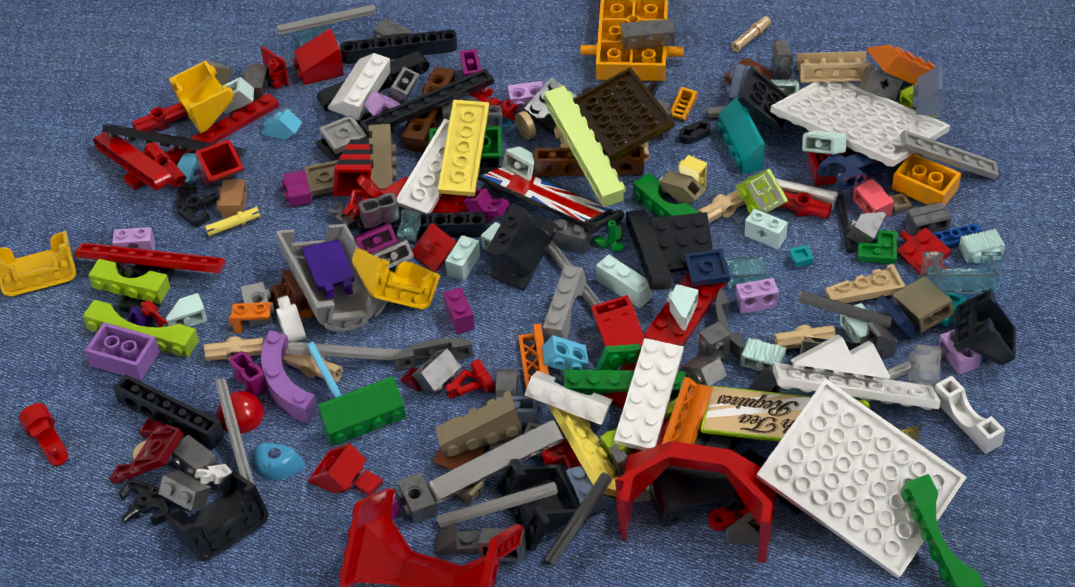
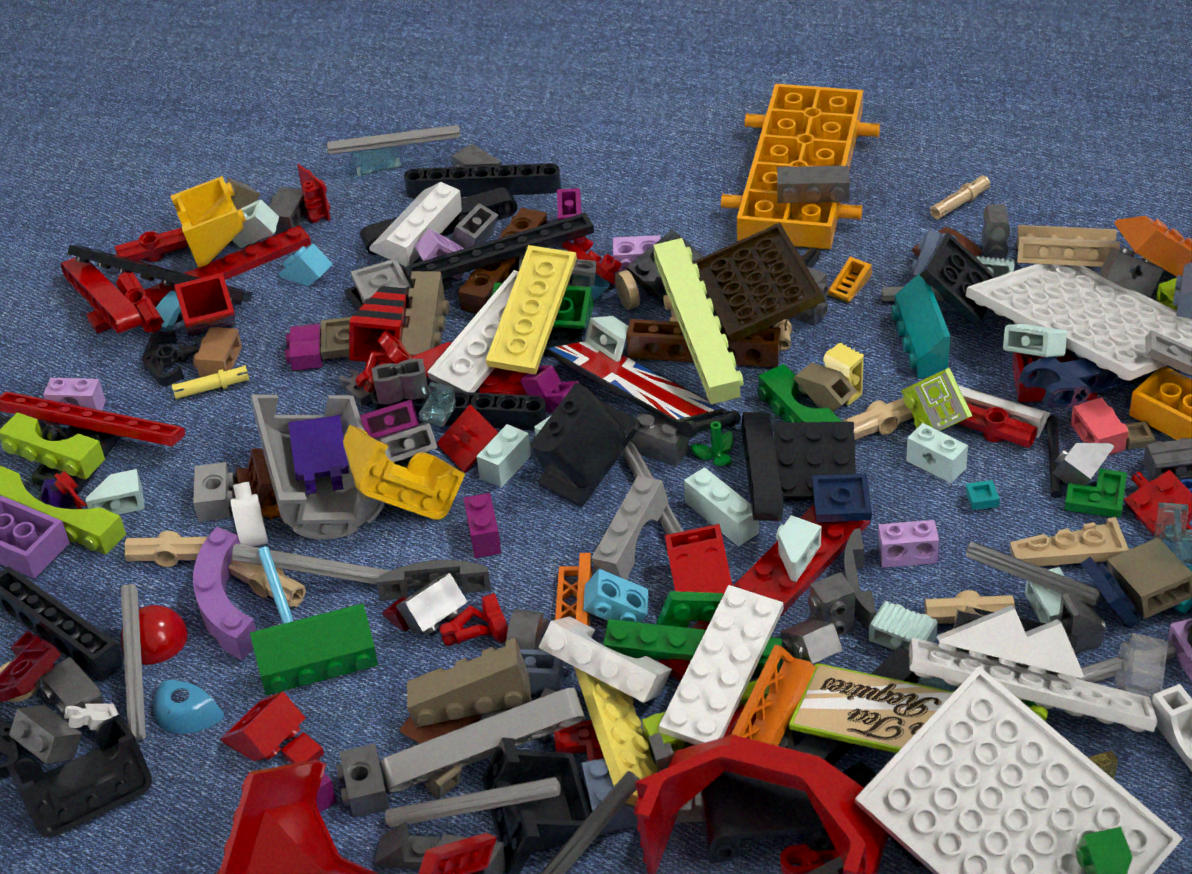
camera: 10 degrees right, 5 degrees down
(248, 311) = (195, 499): orange bracket -> none
(248, 373) = (174, 582): magenta brick -> none
(318, 59) = (372, 188): red slope -> none
(694, 132) = (859, 318): black beam -> none
(746, 270) = (898, 506): clear light blue brick -> none

